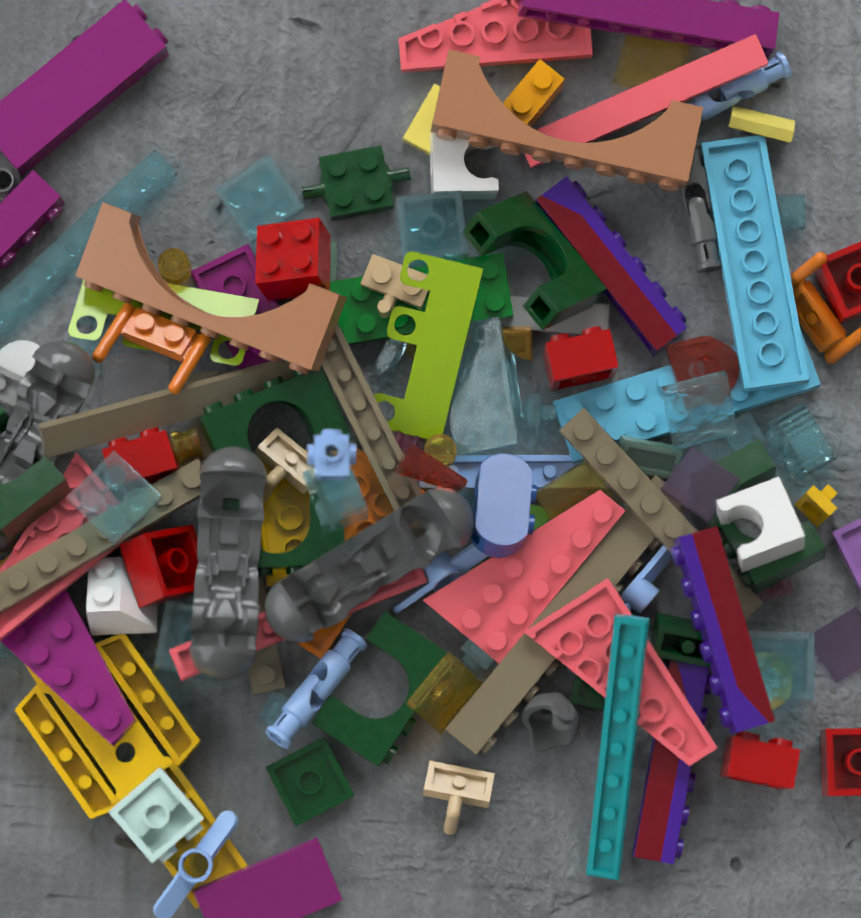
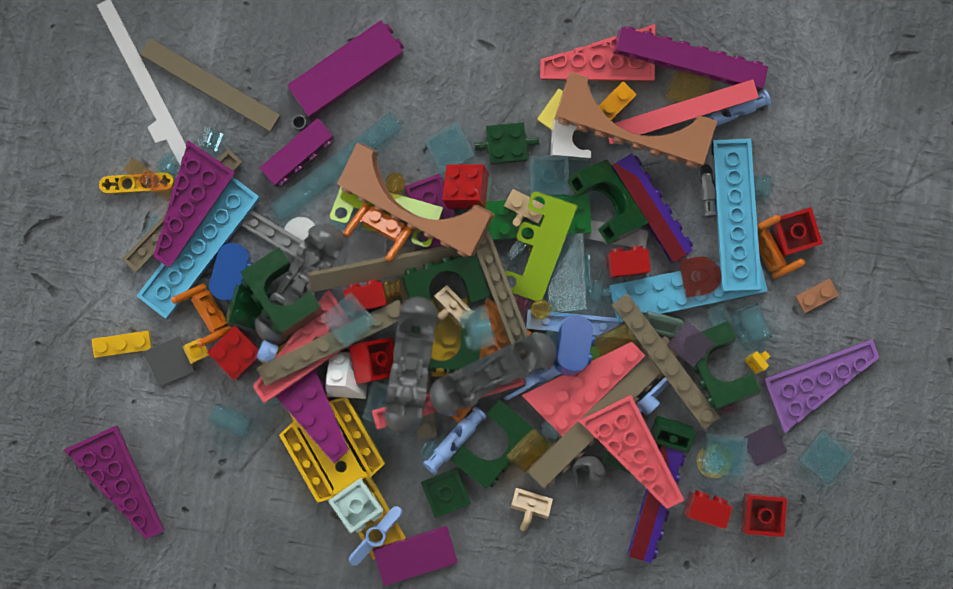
camera: 10 degrees right, 5 degrees up
(331, 468) = (475, 319): light blue brick -> none
(425, 468) = (529, 318): clear red slope -> none
(518, 341) = (593, 247): pearl gold tile -> none
(617, 746) = (626, 492): teal tile -> none
(699, 410) = (695, 300): clear light blue plate -> none
(723, 630) = (695, 433): brick -> none
(762, 124) = (750, 132): light yellow tile -> none
(773, 513) = (733, 369): white piece -> none

